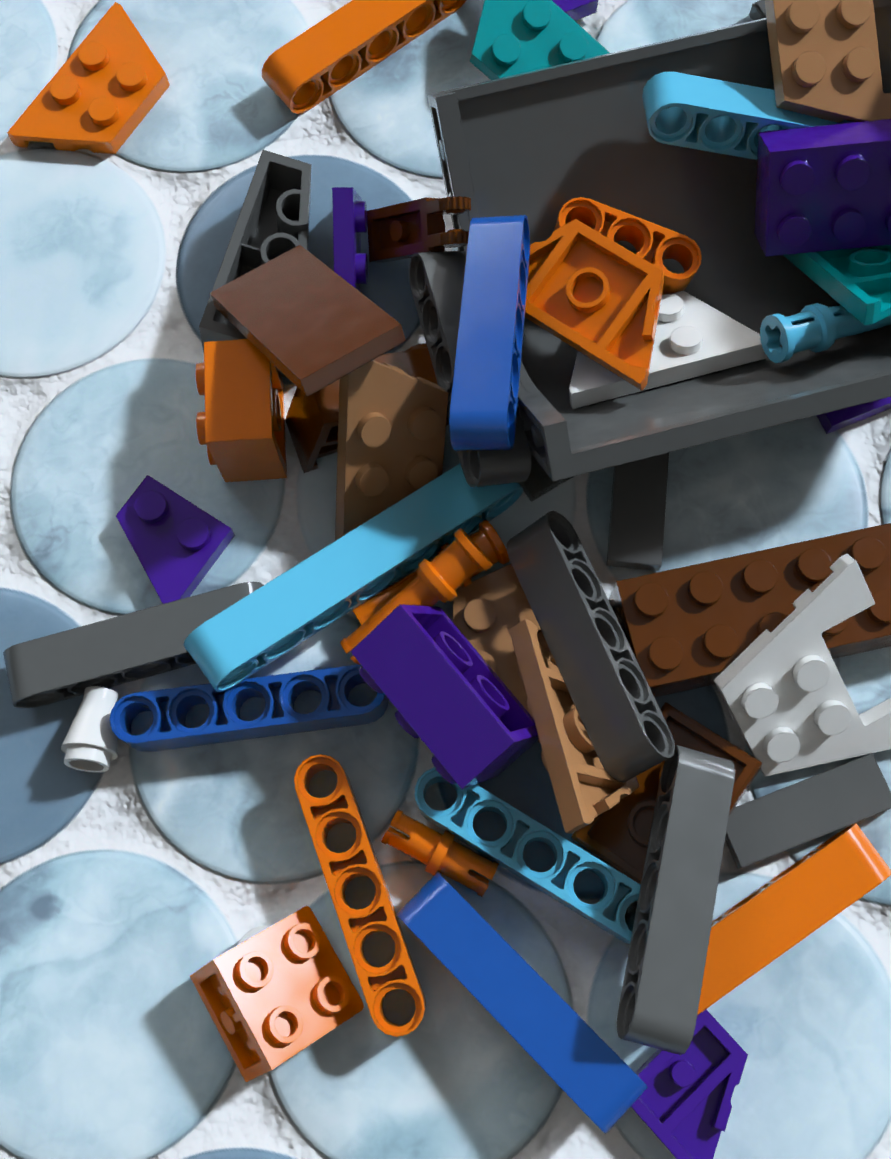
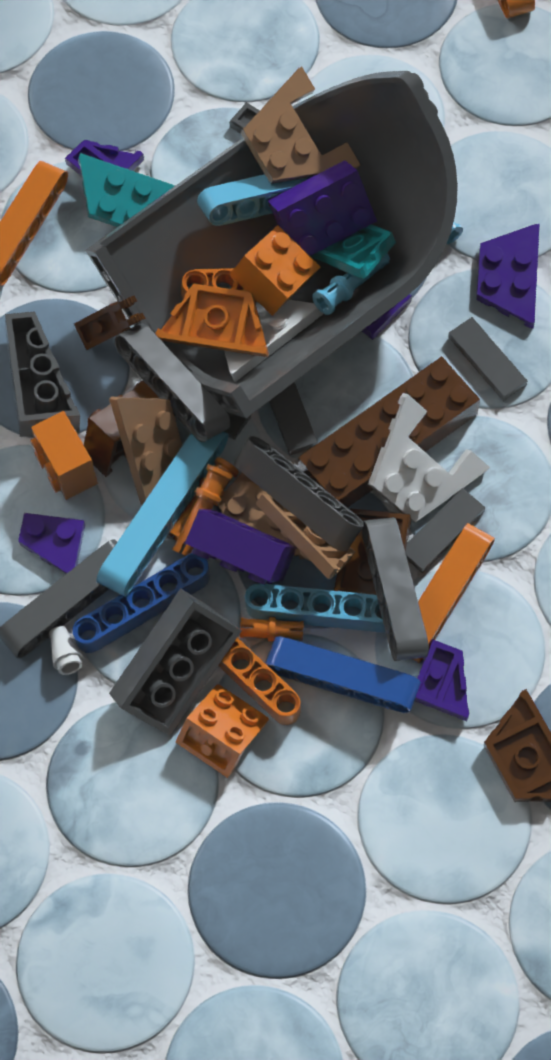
camera: 25 degrees left, 5 degrees down
(245, 845) = (174, 662): none -> dark grey slope
(307, 319) = (80, 391): reddish brown tile -> none
(348, 224) = (79, 356): dark purple wing -> none
(490, 334) = (179, 359): blue beam -> none
(719, 251) = (274, 270): none -> orange brick

